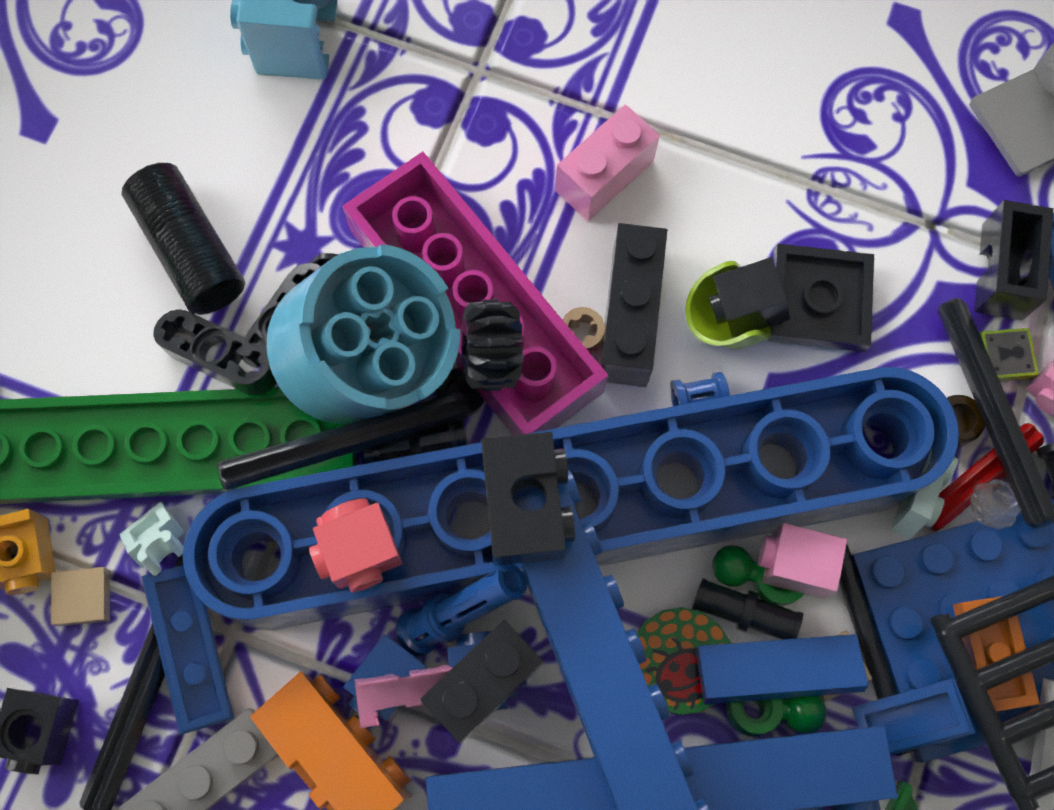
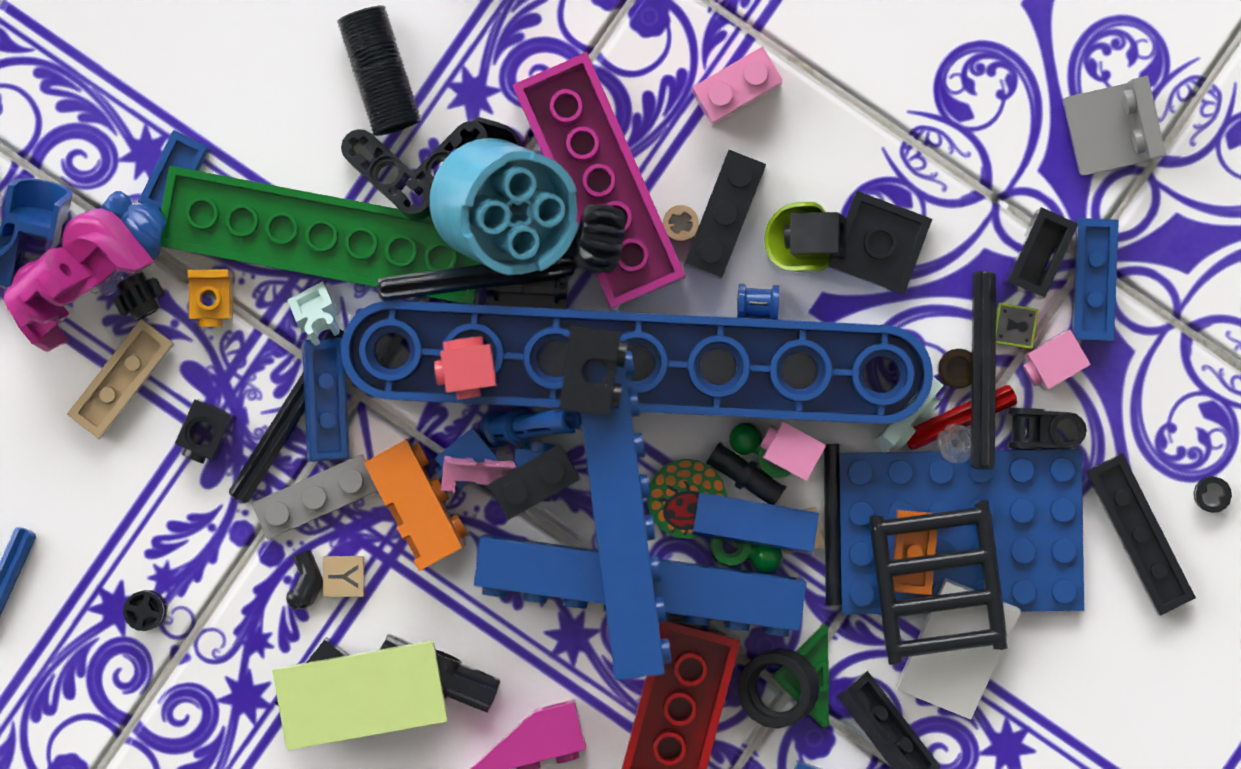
camera: 20 degrees right, 15 degrees up
(80, 596) = (250, 340): tan tile -> none
(919, 716) = (840, 582): blue tile -> none

